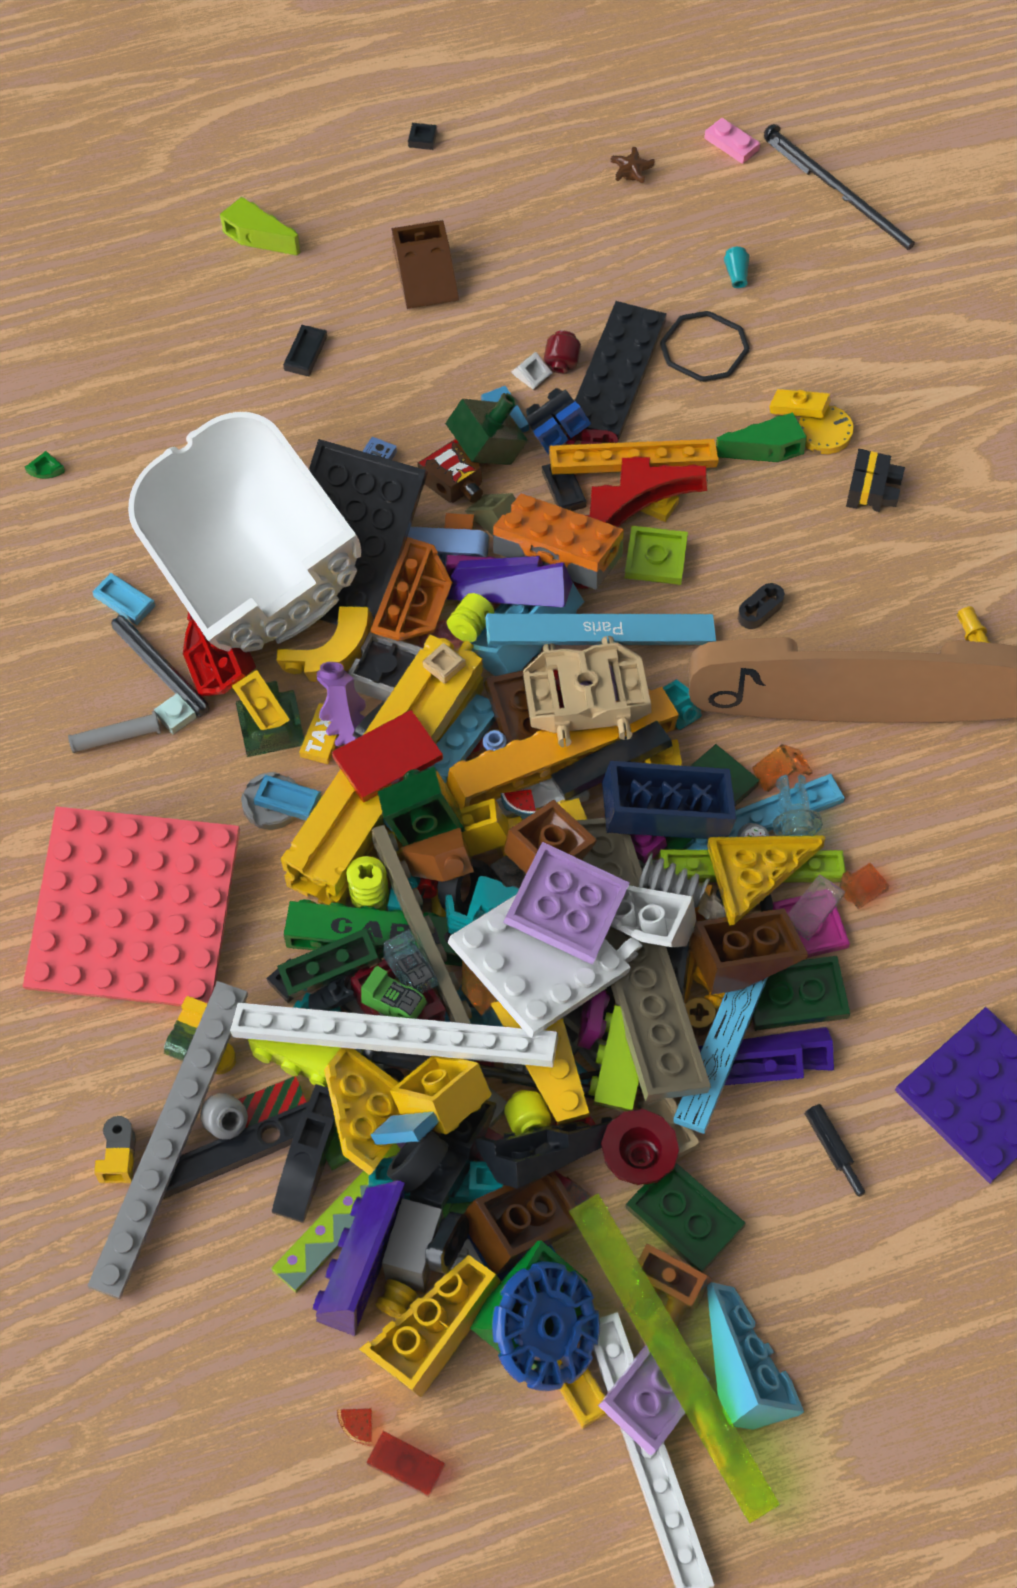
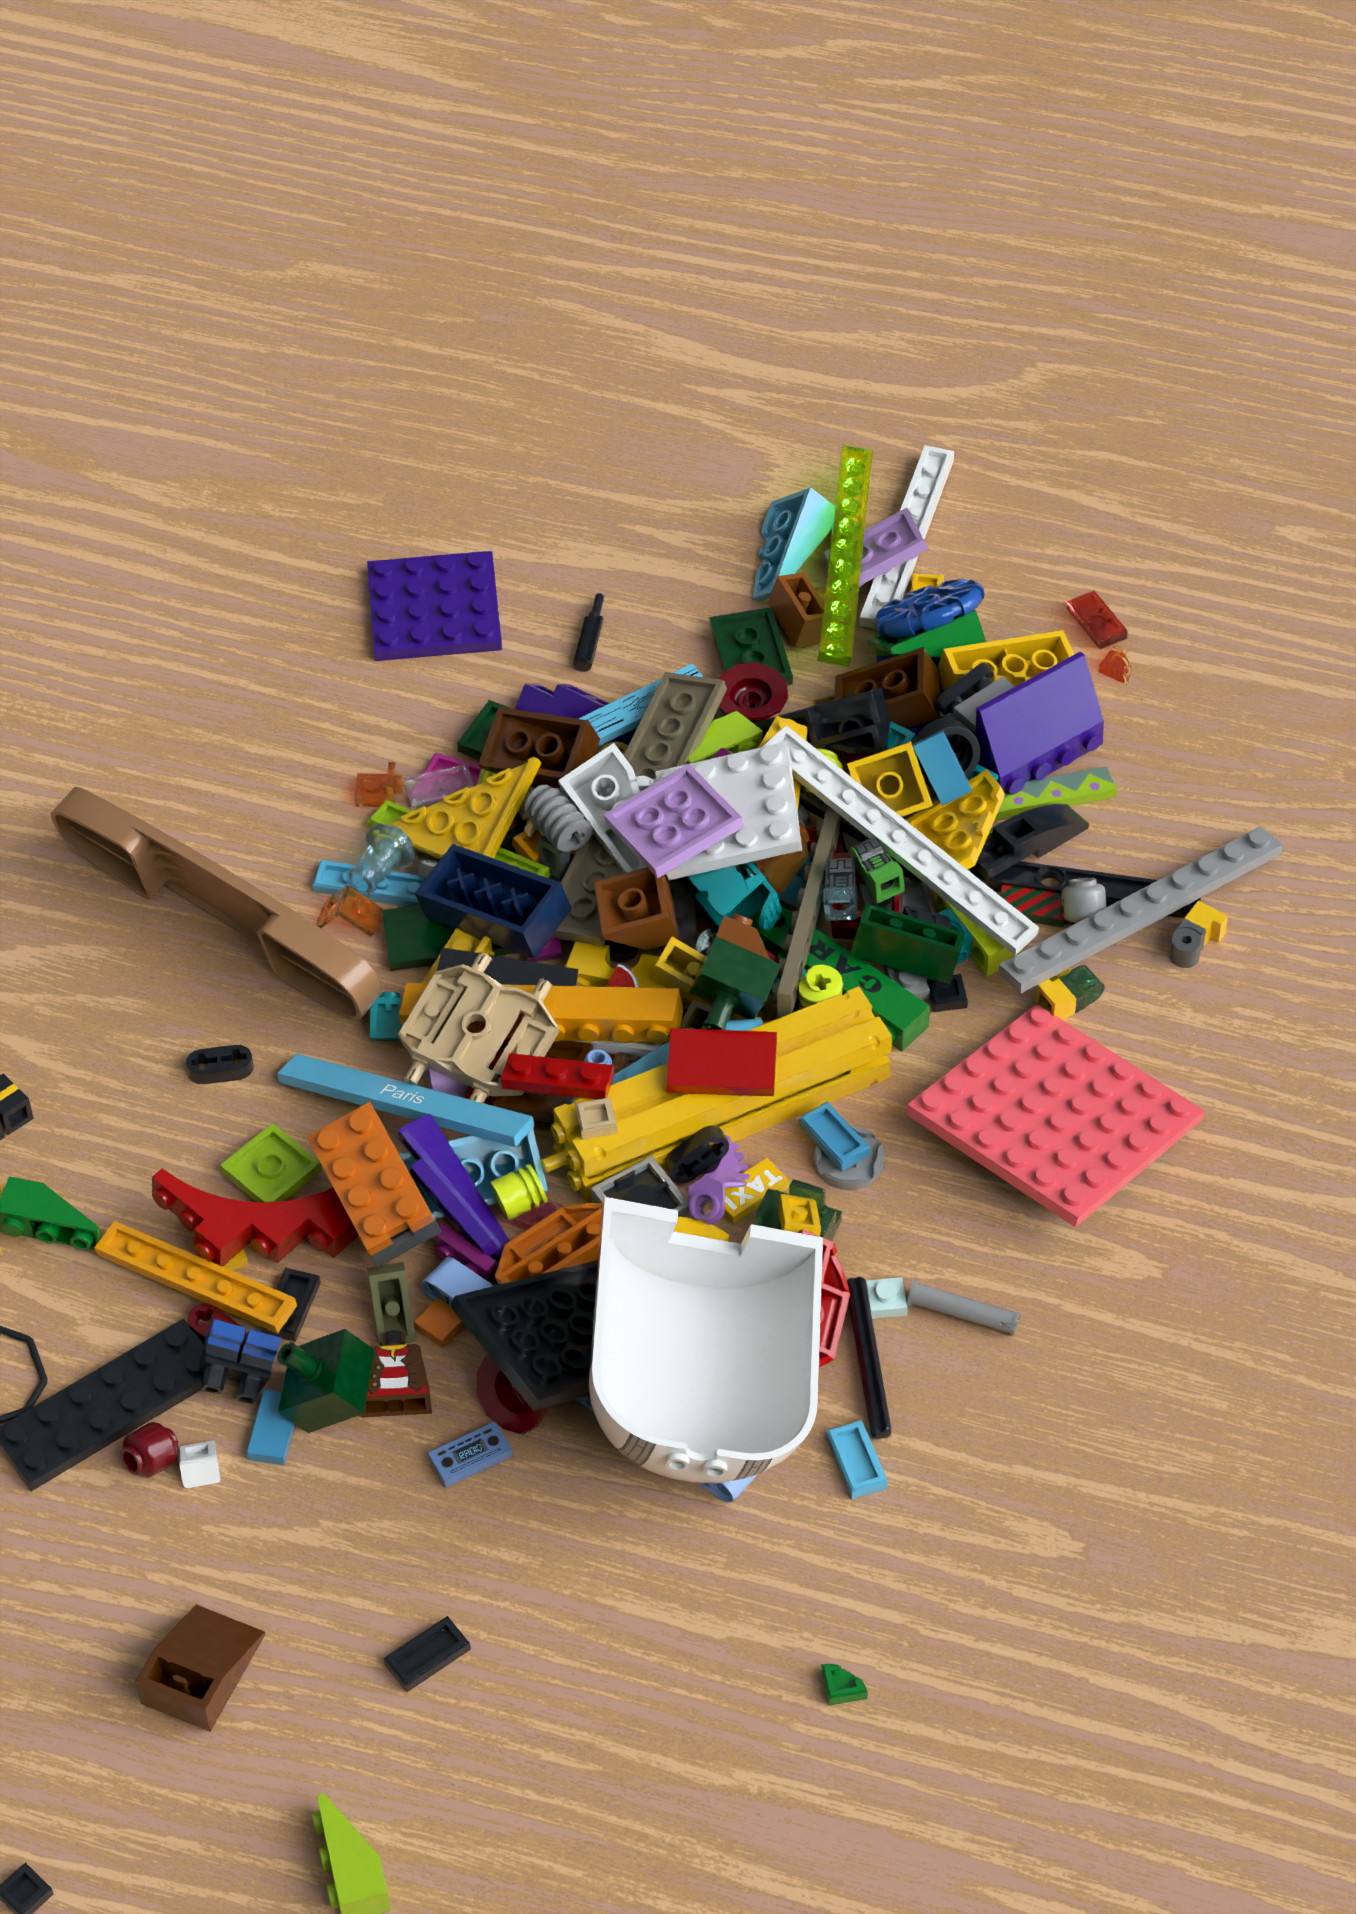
camera: 145 degrees left, 10 degrees down
(497, 679) = (557, 1076): none -> red plate
(973, 629) = (54, 923): yellow axle -> none

